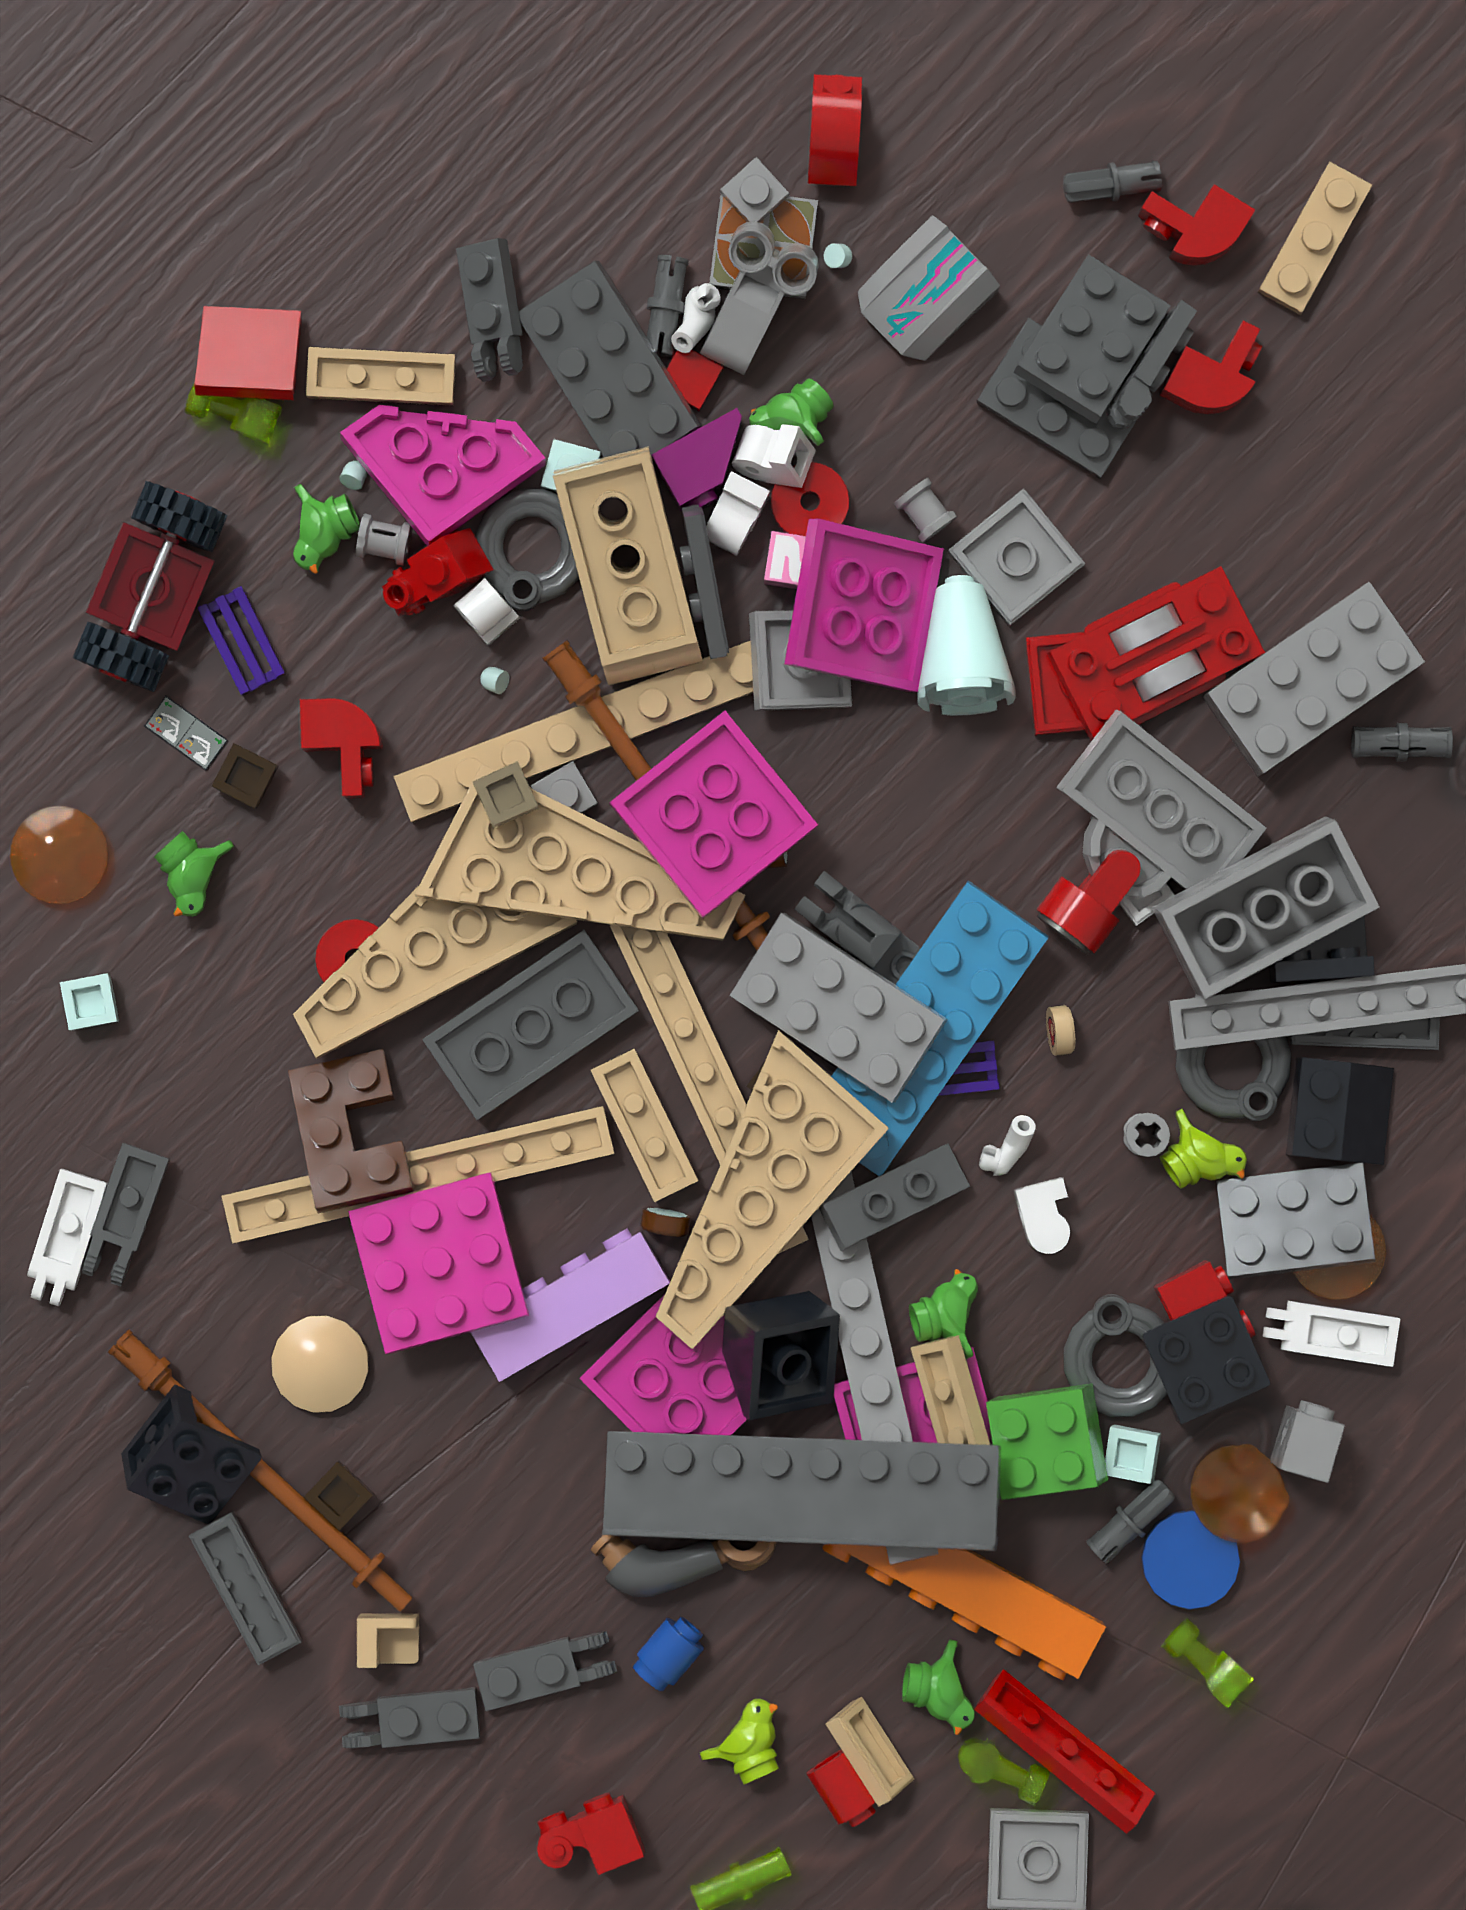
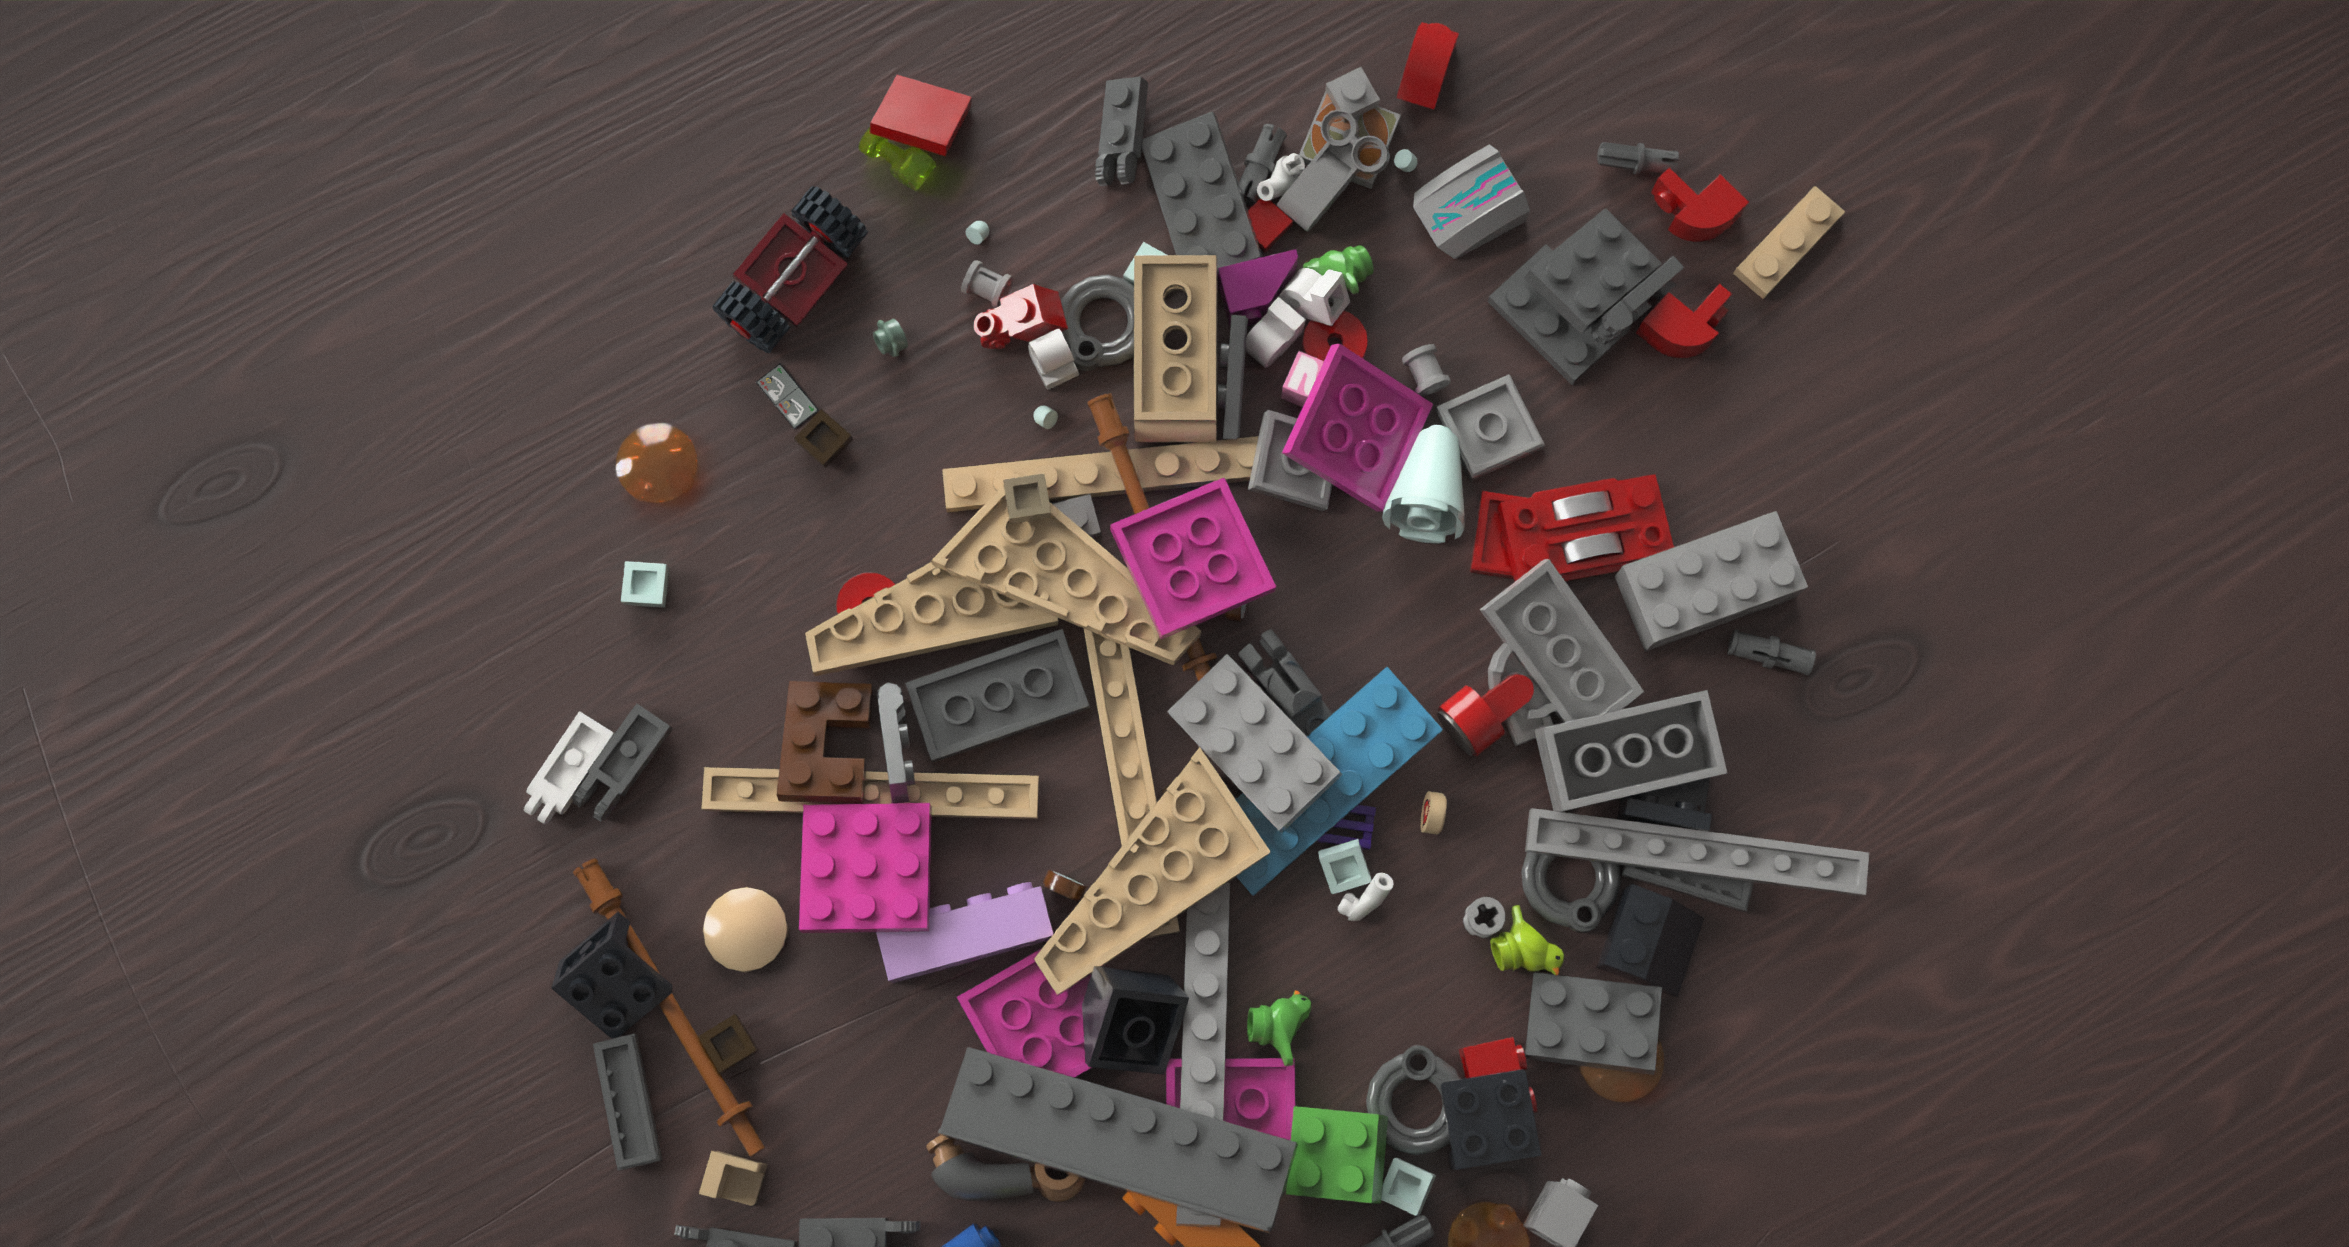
camera: 15 degrees right, 10 degrees down
(189, 871) = (756, 500): bright green animal -> none
(222, 603) = (845, 303): dark purple tile -> none
(288, 634) = (890, 337): none -> sand green plate
(322, 528) = (940, 263): bright green animal -> none
(341, 726) = (909, 419): red brick -> none
(381, 376) = (1020, 160): tan plate -> none
(429, 1109) = (895, 739): none -> hinge
(441, 464) = (1049, 238): dark pink plate -> none
(644, 1125) = (1068, 801): tan plate -> none
(894, 1196) = (1260, 913): dark grey plate -> none
(949, 1392) = (1265, 1088): tan plate -> none
(975, 1117) = (1344, 866): none -> light aqua plate
(1039, 1215) = (1378, 967): white leg -> none
(1336, 1333) = (1605, 1128): white hinge -> none

